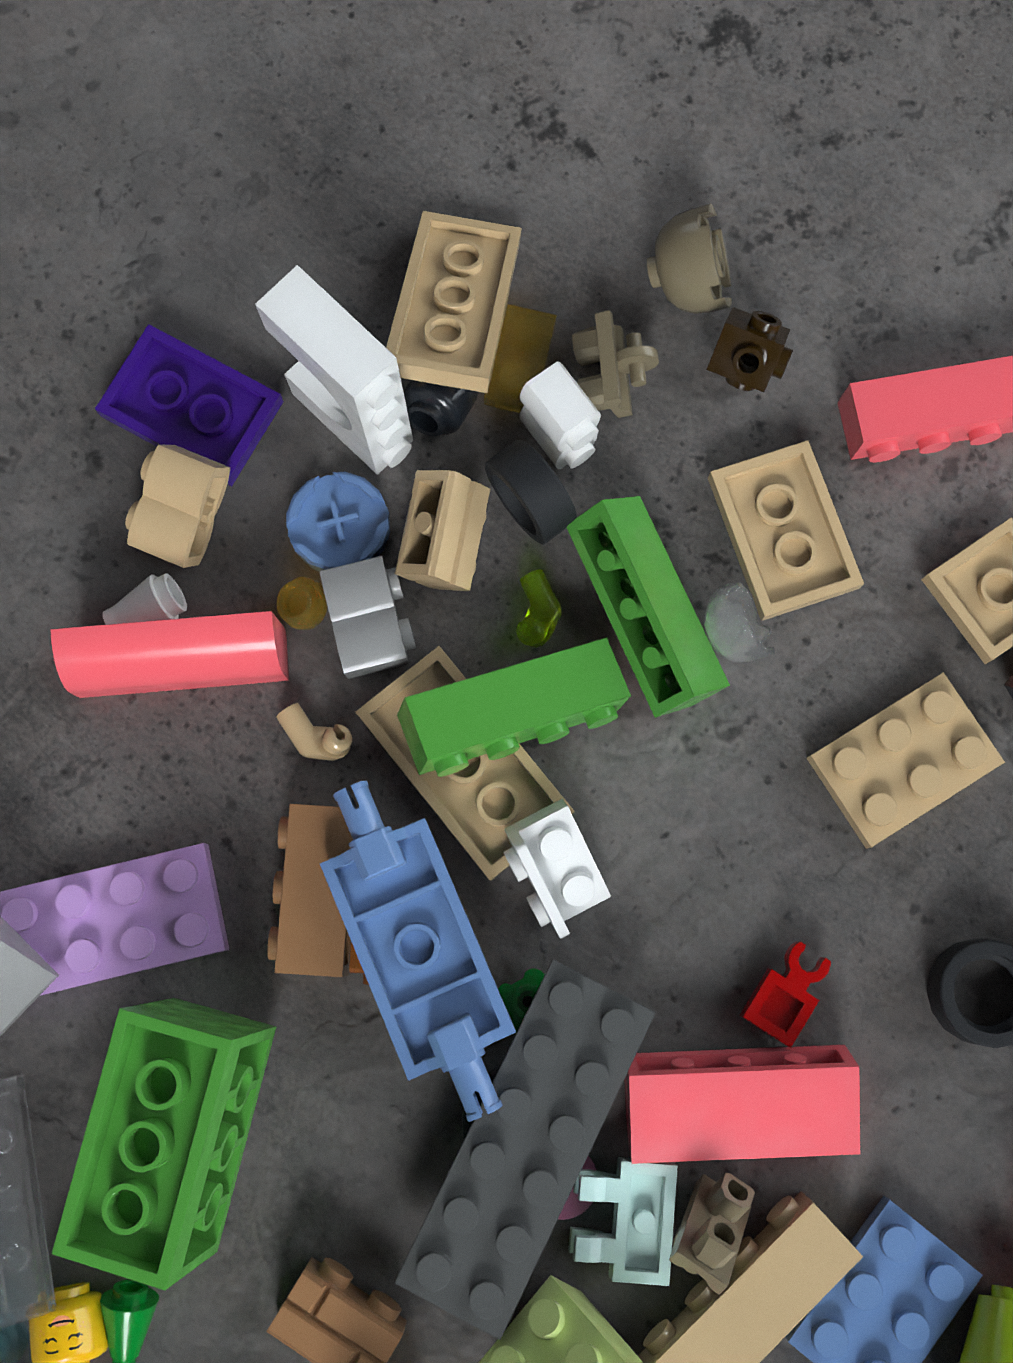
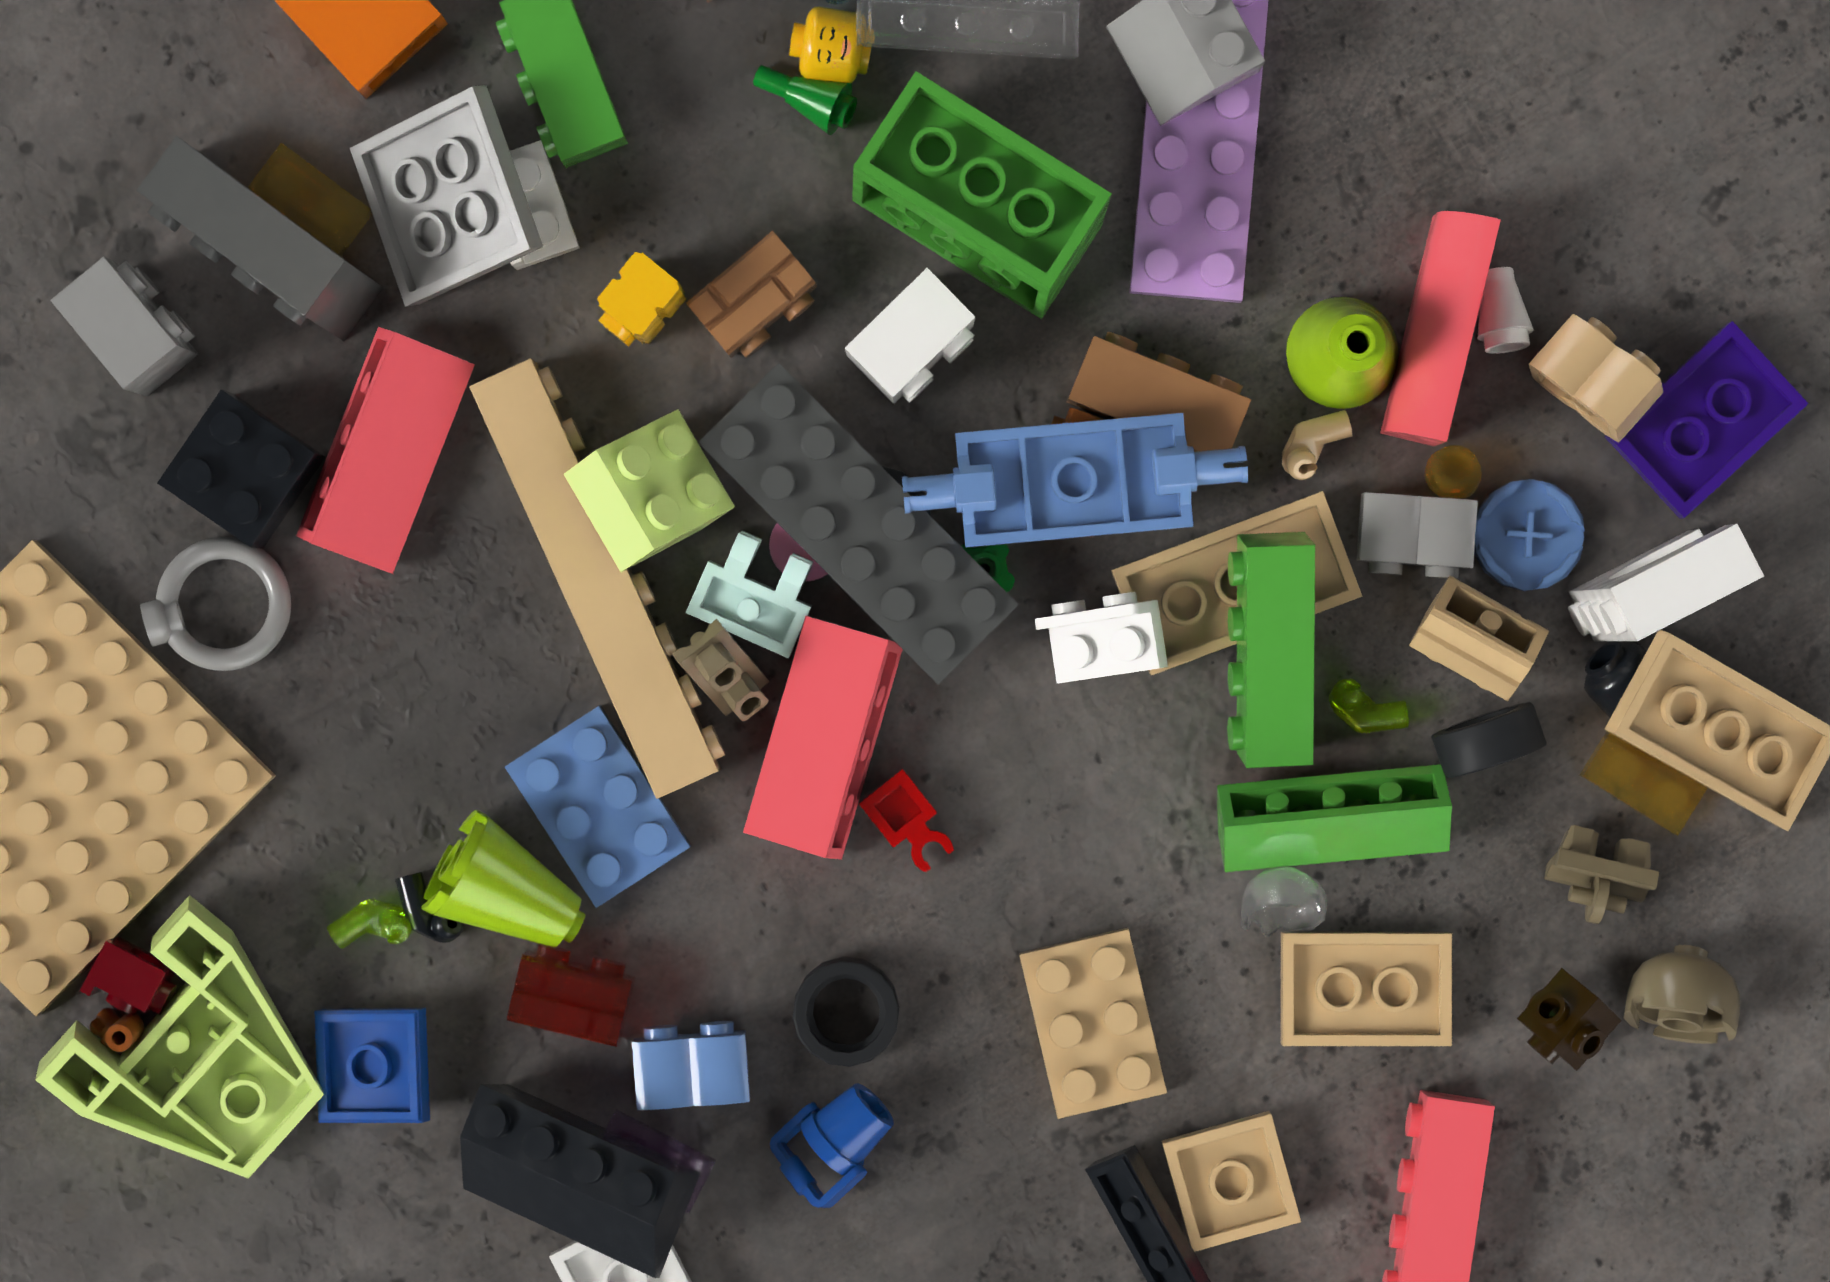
camera: 110 degrees right, 10 degrees up
(224, 736) = (1326, 366): none -> lime cone
(328, 1153) = (912, 337): none -> white brick
(560, 416) = (1556, 796): white brick -> none

